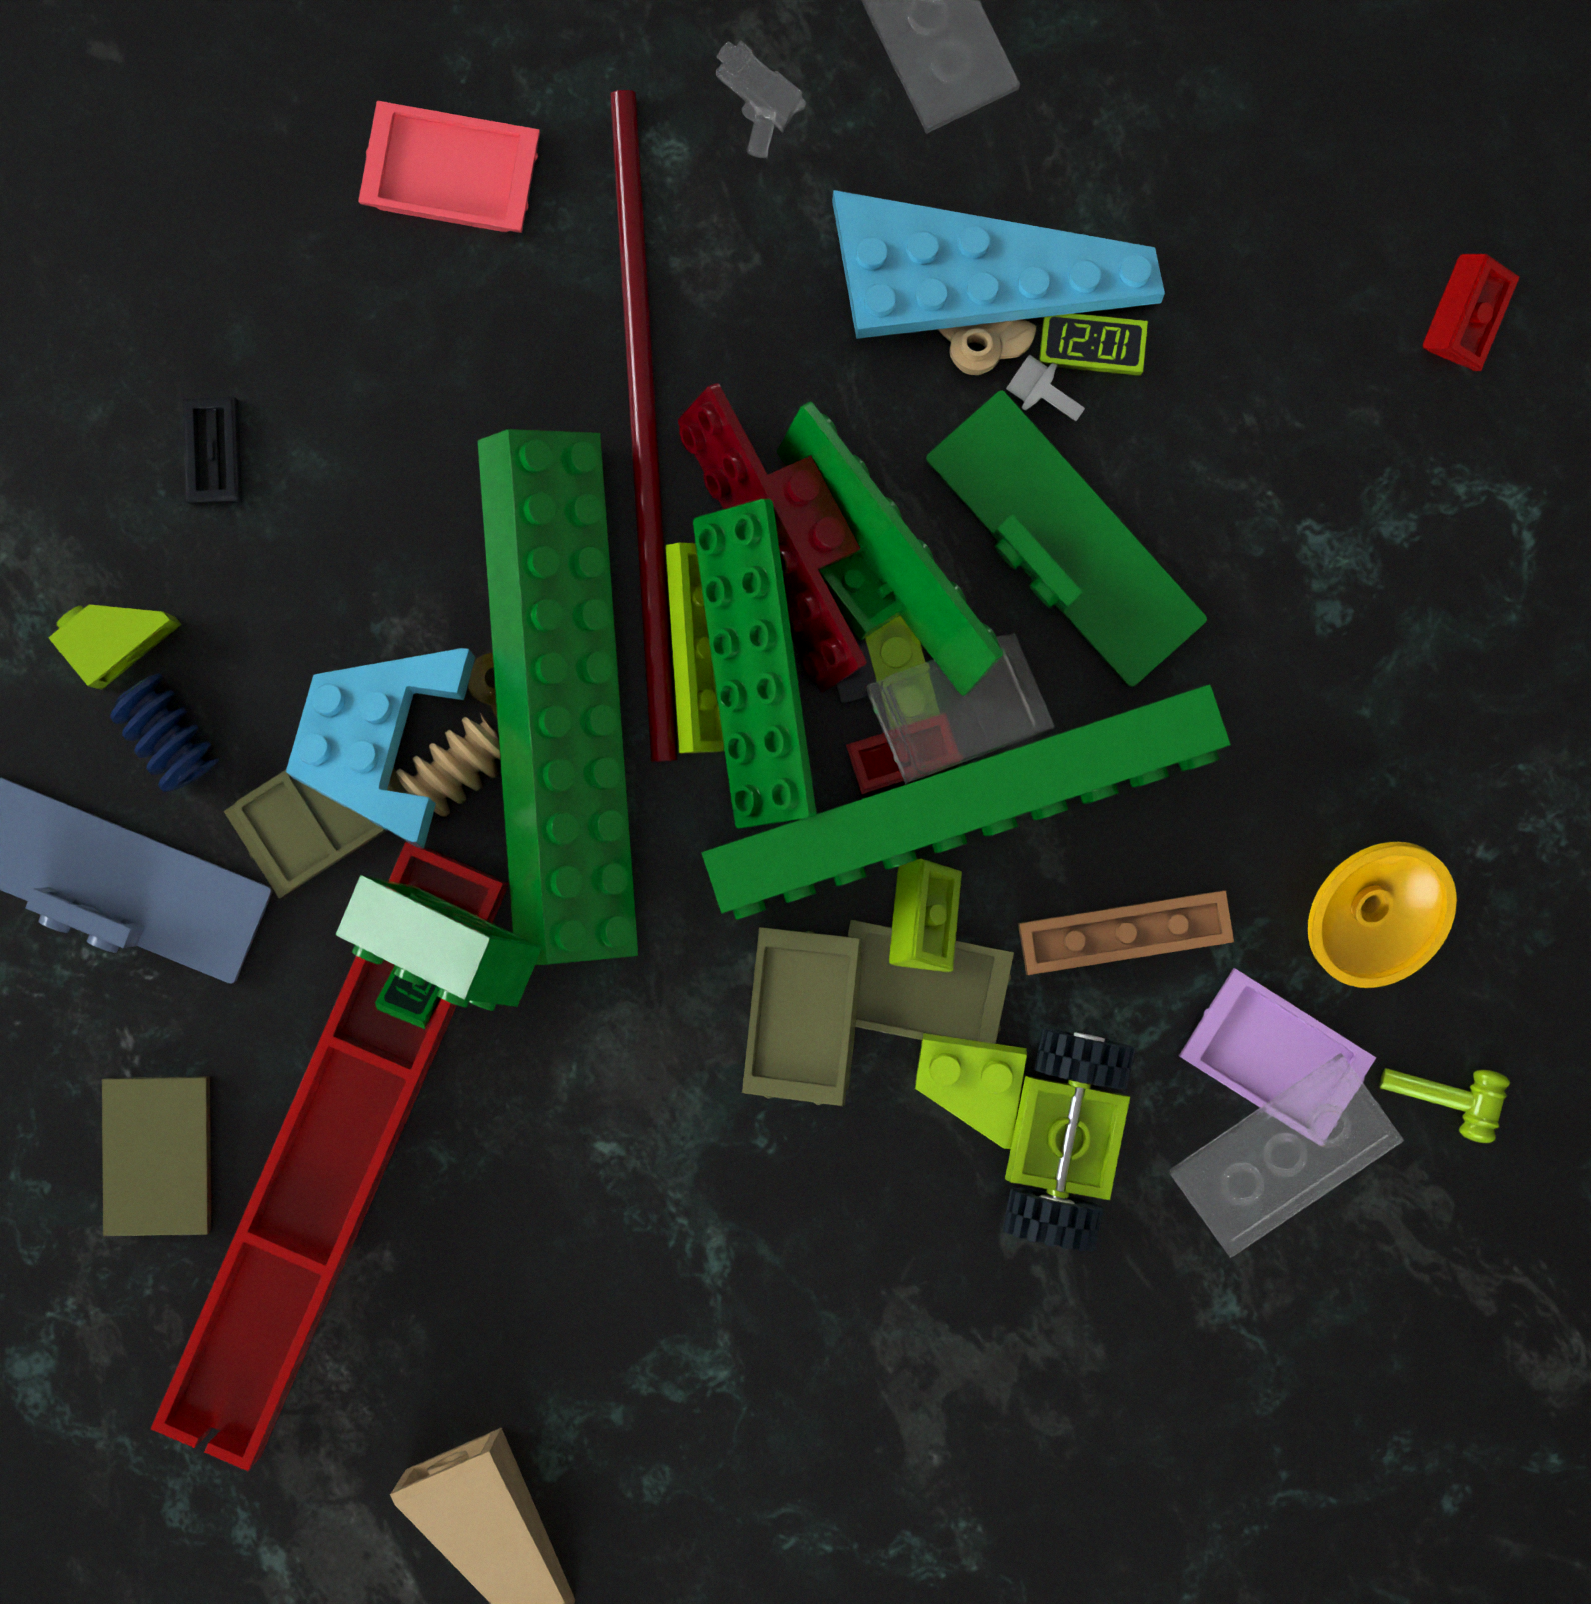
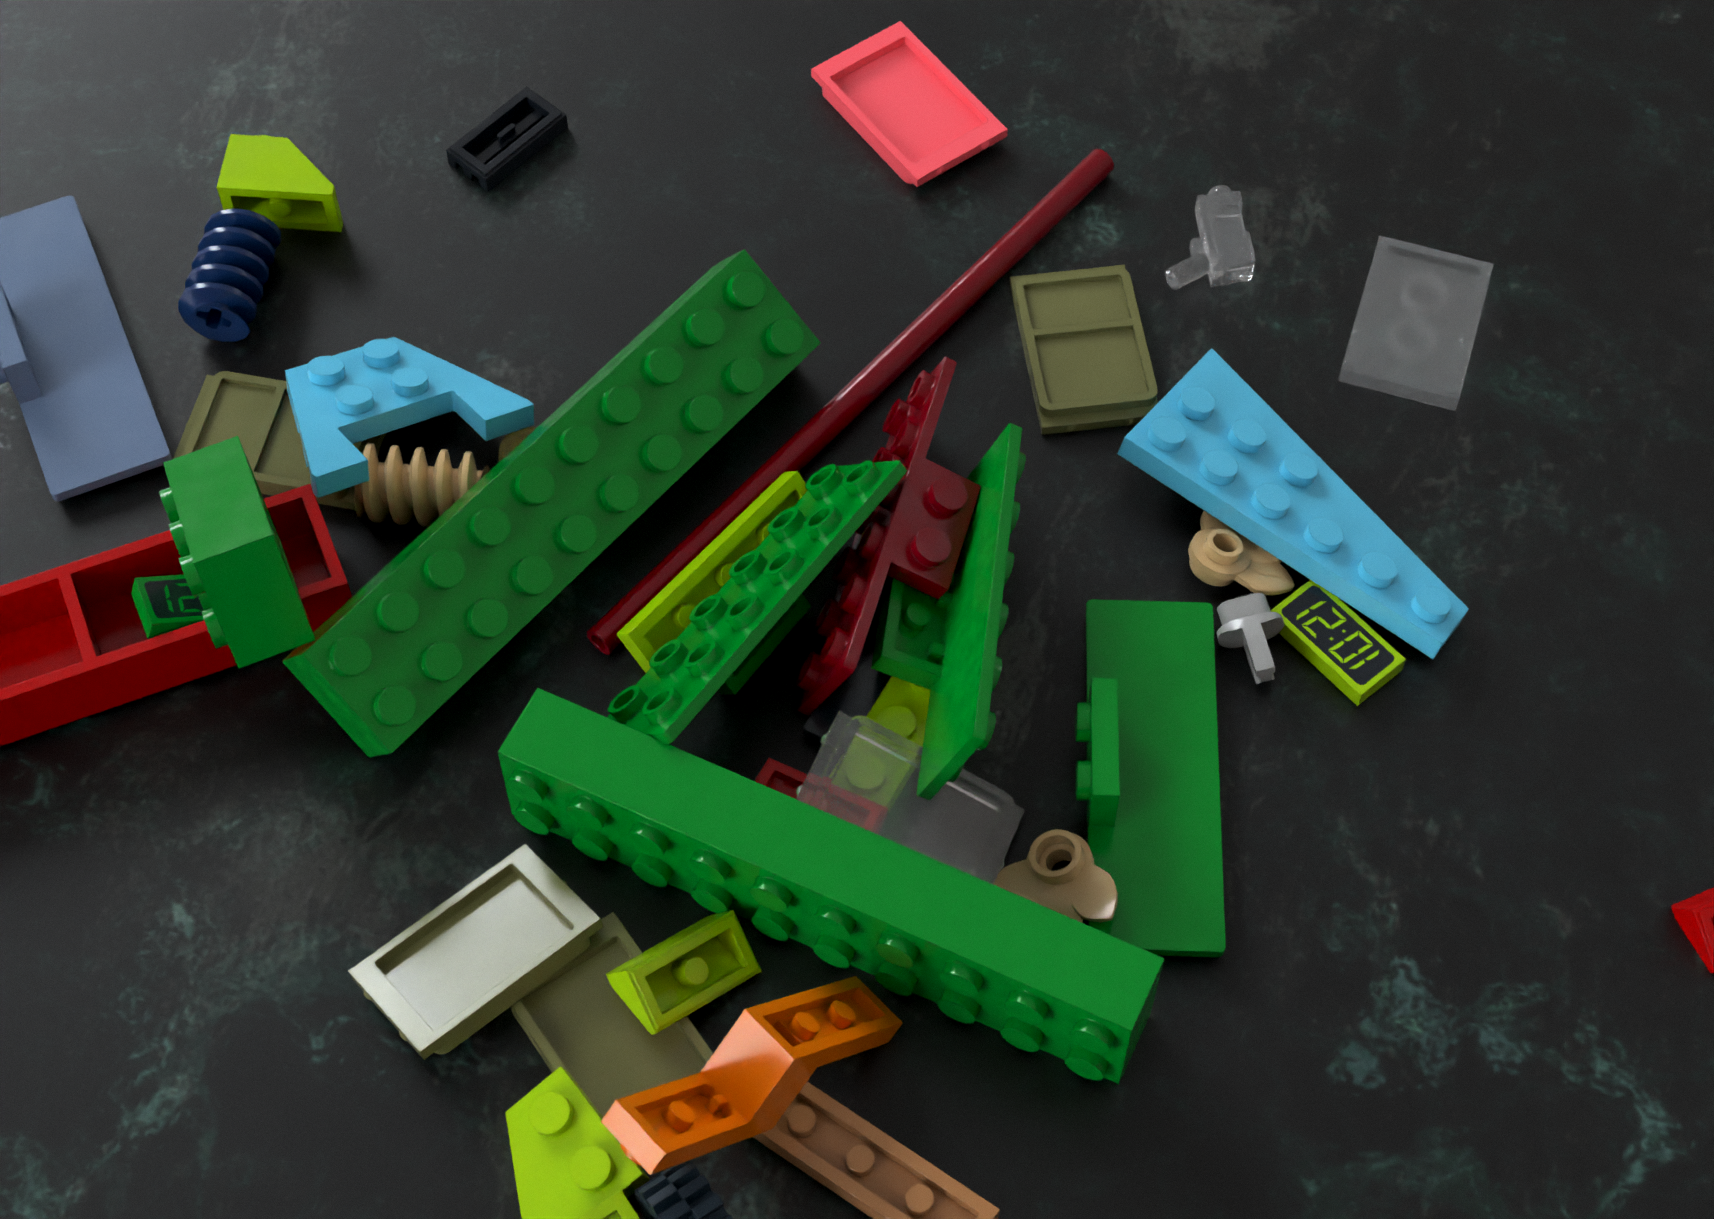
camera: 45 degrees right, 30 degrees down
(748, 261) = (1084, 348): none -> olive piece
(1045, 954) = (750, 1074): none -> orange bracket
(1087, 678) = (1075, 891): none -> tan plate

